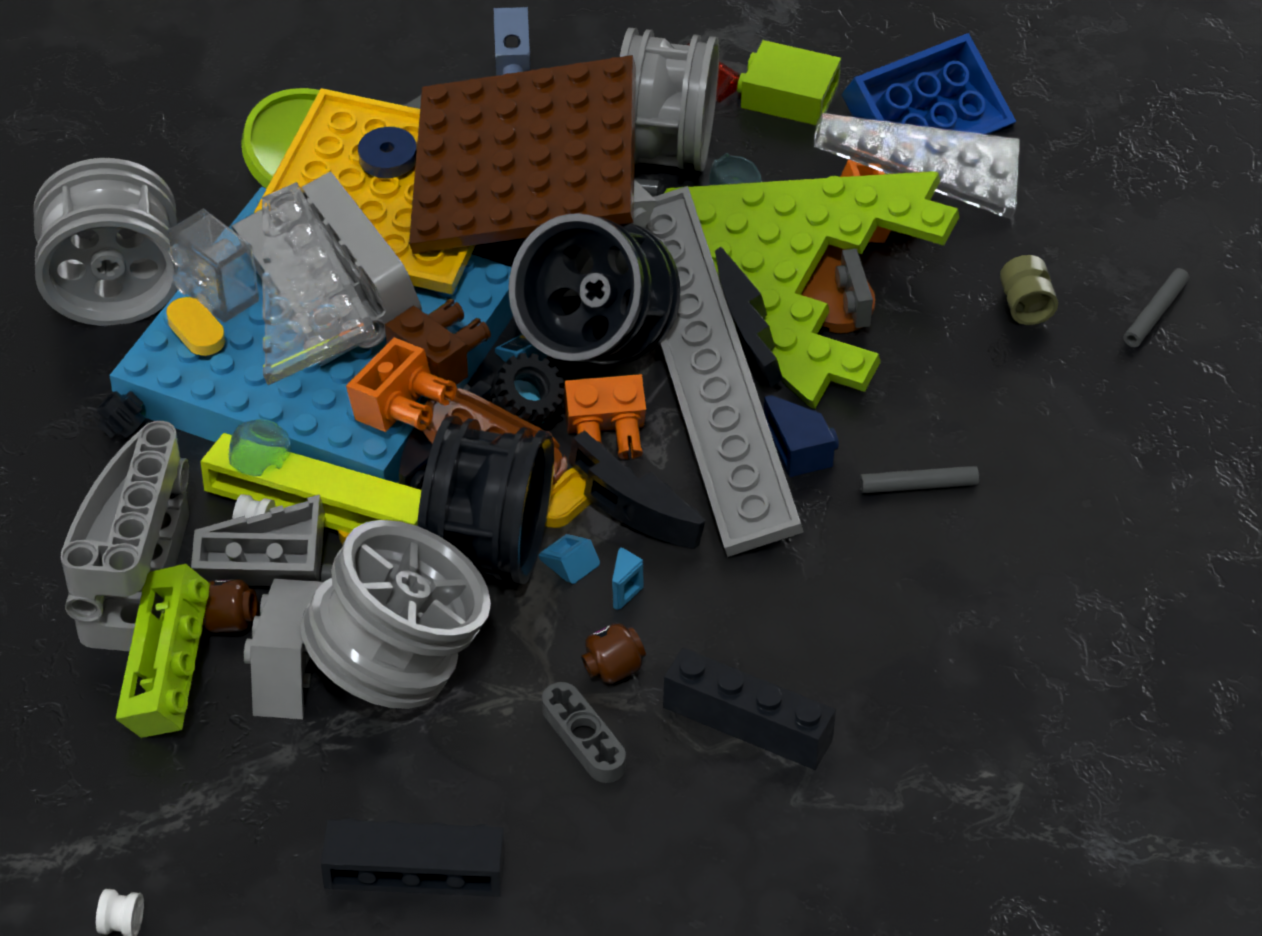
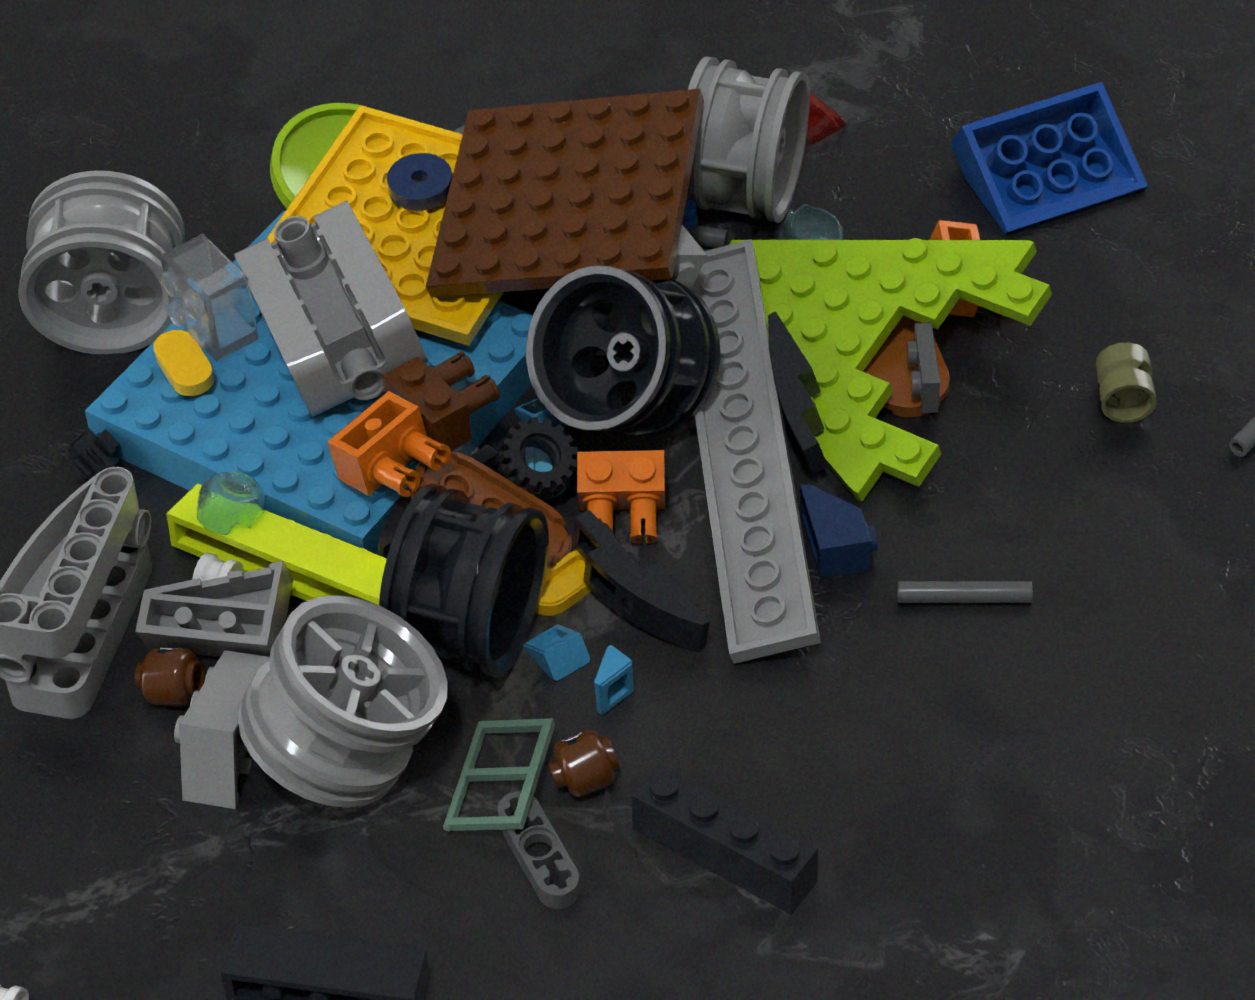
camera: 10 degrees right, 0 degrees up
(163, 651) = (91, 722): lime brick -> none
(306, 292) = (296, 335): clear wing -> none
(511, 23) = (588, 42): sand blue torso -> none
(566, 666) = (529, 774): none -> sand green window
(789, 82) = (894, 126): lime brick -> none
(969, 165) = (1071, 232): clear wing -> none

